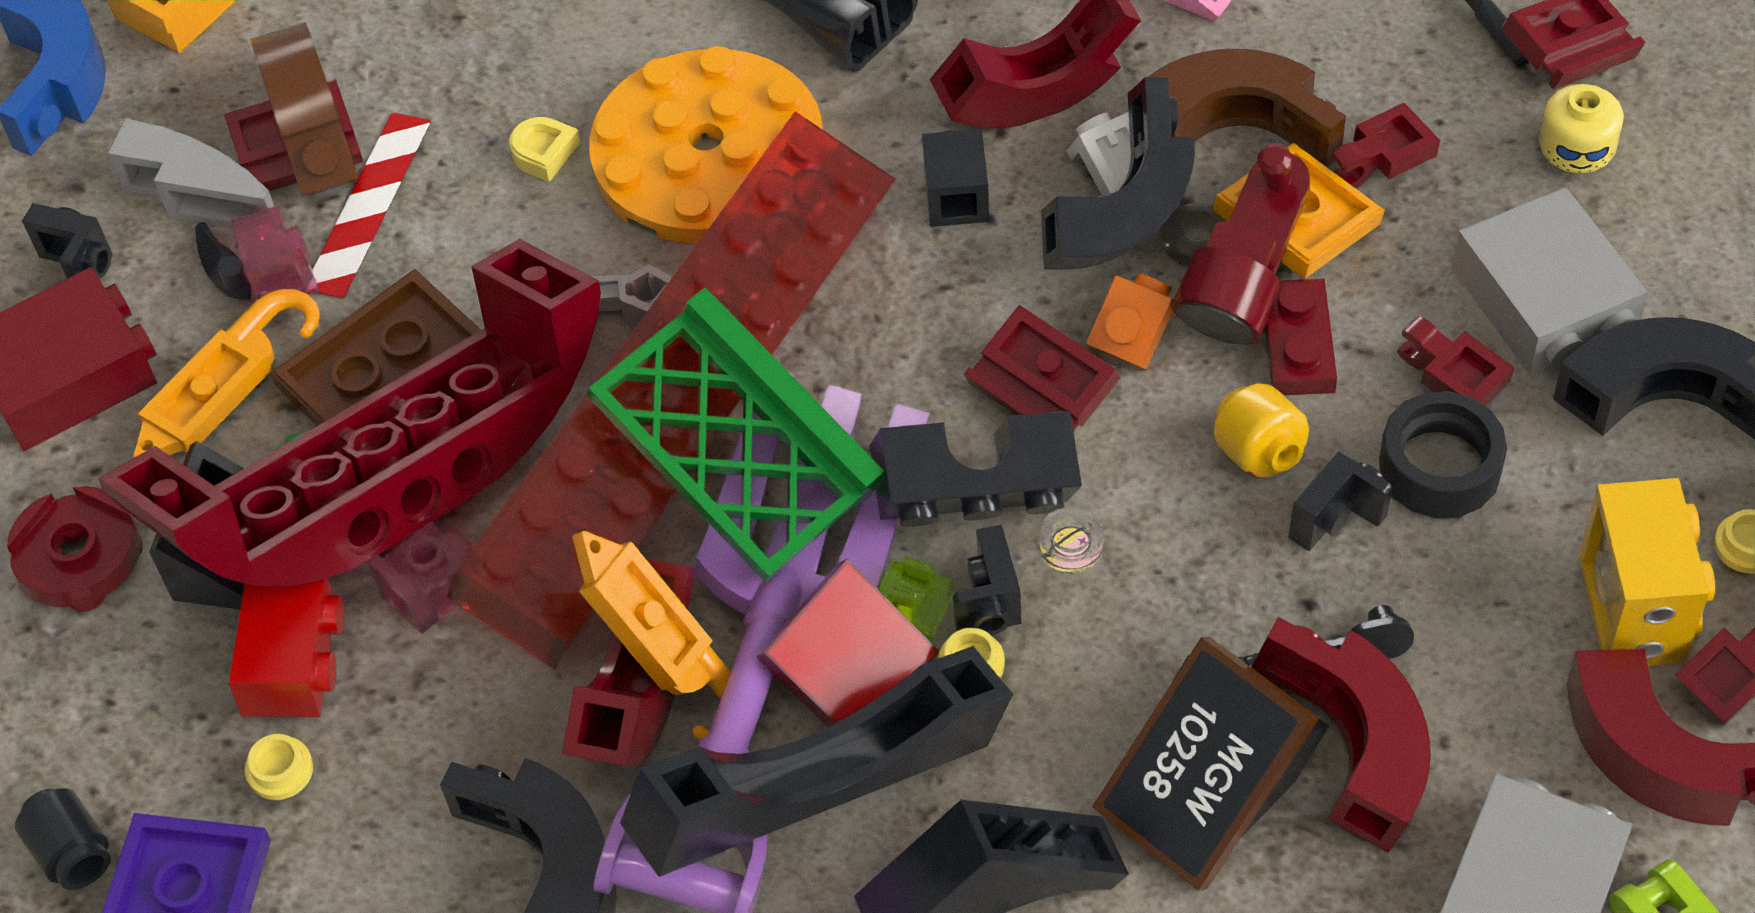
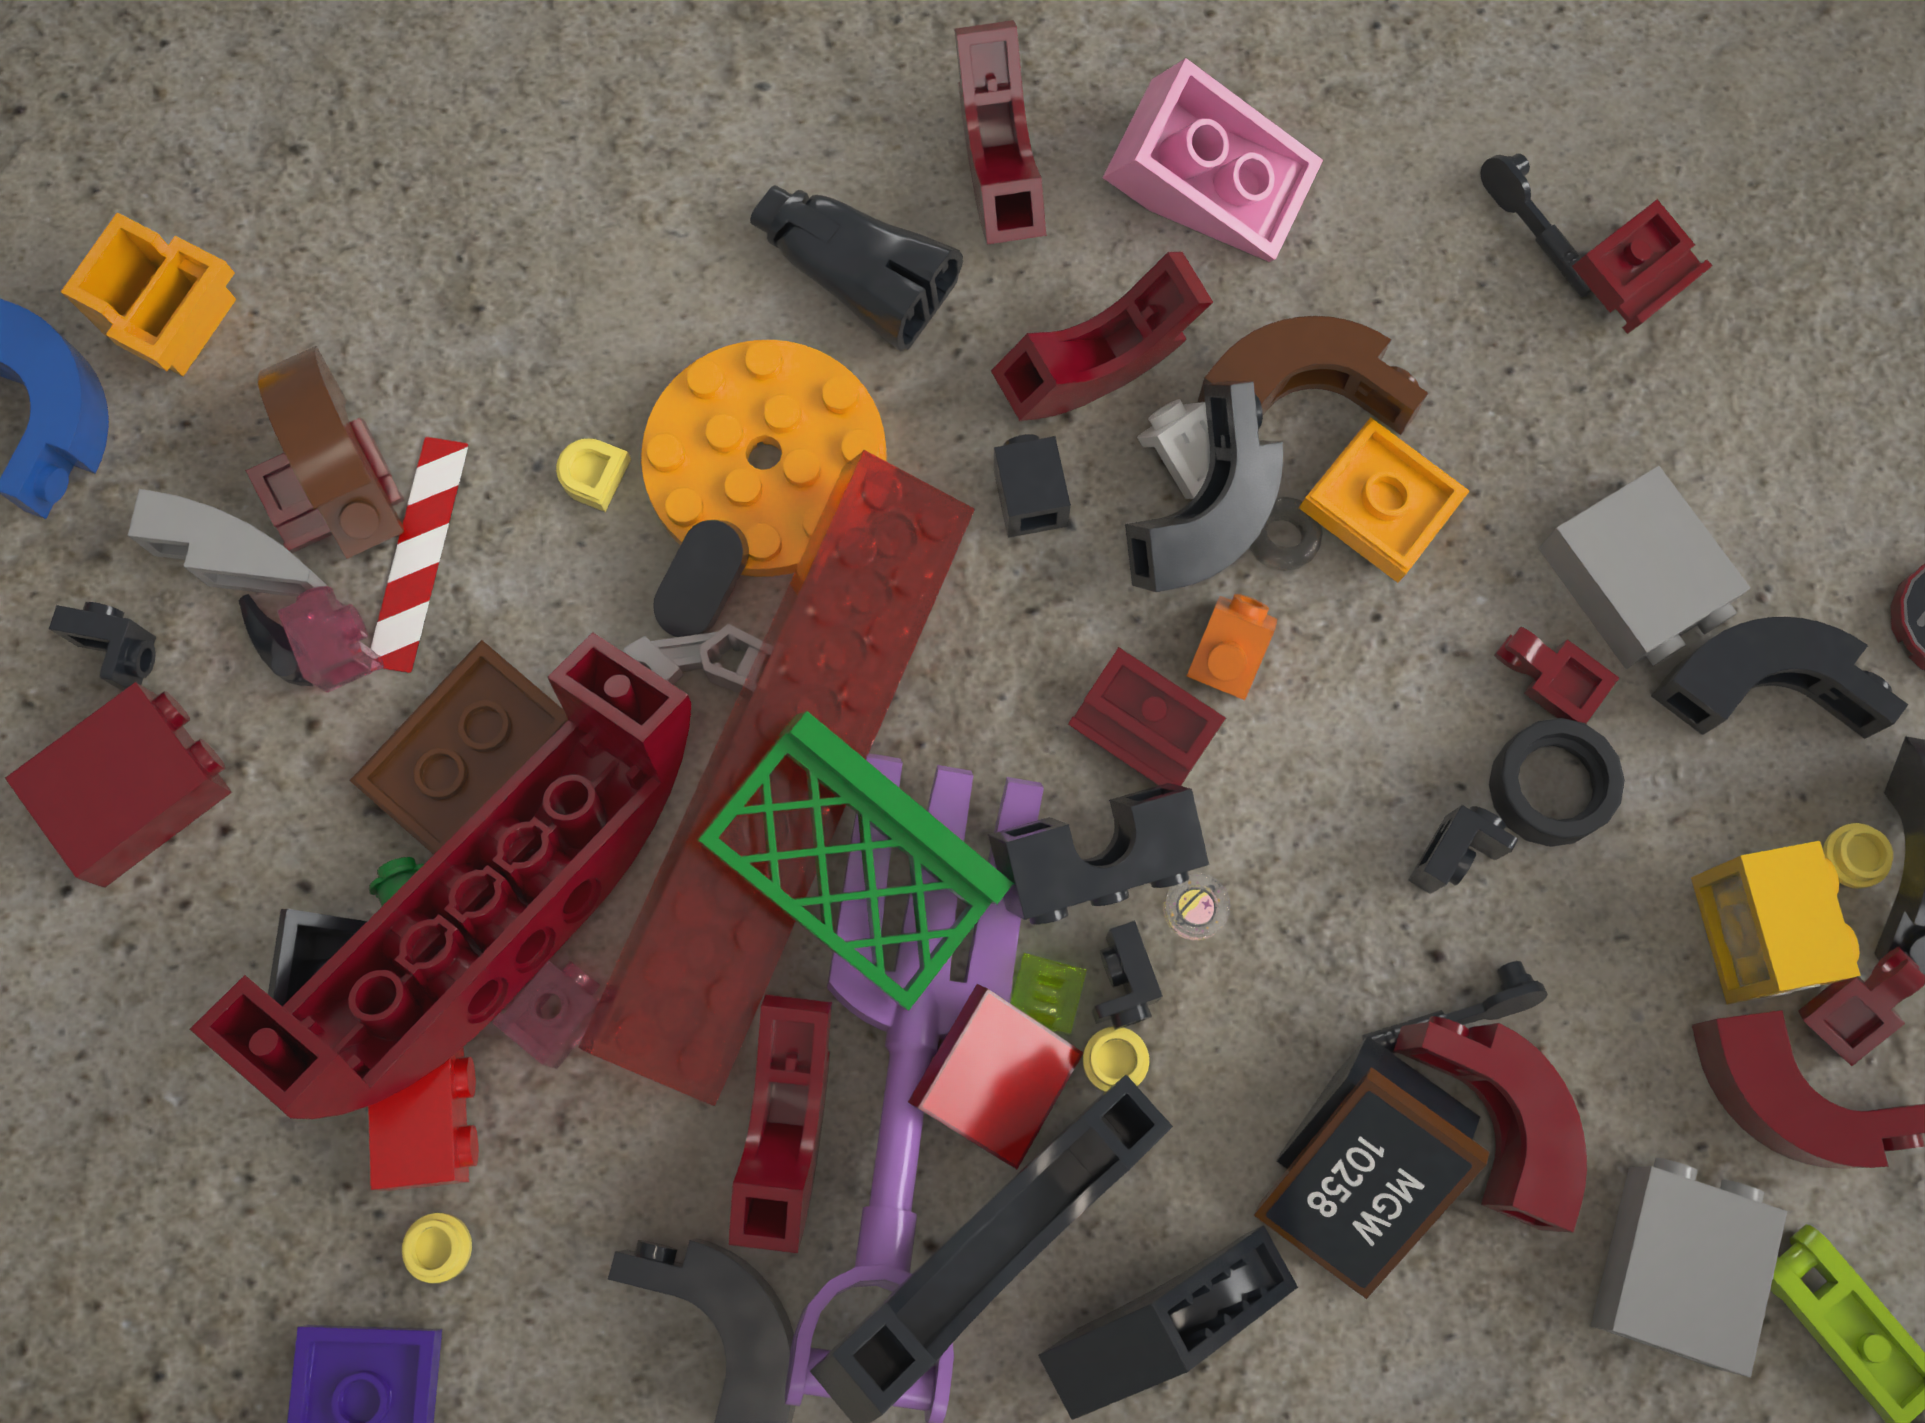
camera: 10 degrees left, 20 degrees up
(63, 838) = (229, 1358): black brick -> none
(80, 578) = (139, 1005): dark red plate -> none
(219, 376) = (294, 792): light orange plate -> none
(630, 226) = (701, 578): none -> black tile
(648, 618) = (797, 1088): light orange plate -> none
(1233, 278) = (1334, 607): dark red piece -> none
(1260, 430) = (1376, 772): yellow head -> none
(1301, 339) = (1397, 647): dark red plate -> none
(1389, 142) = (1466, 411): dark red plate -> none
(1581, 128) = (1662, 383): light yellow head -> none

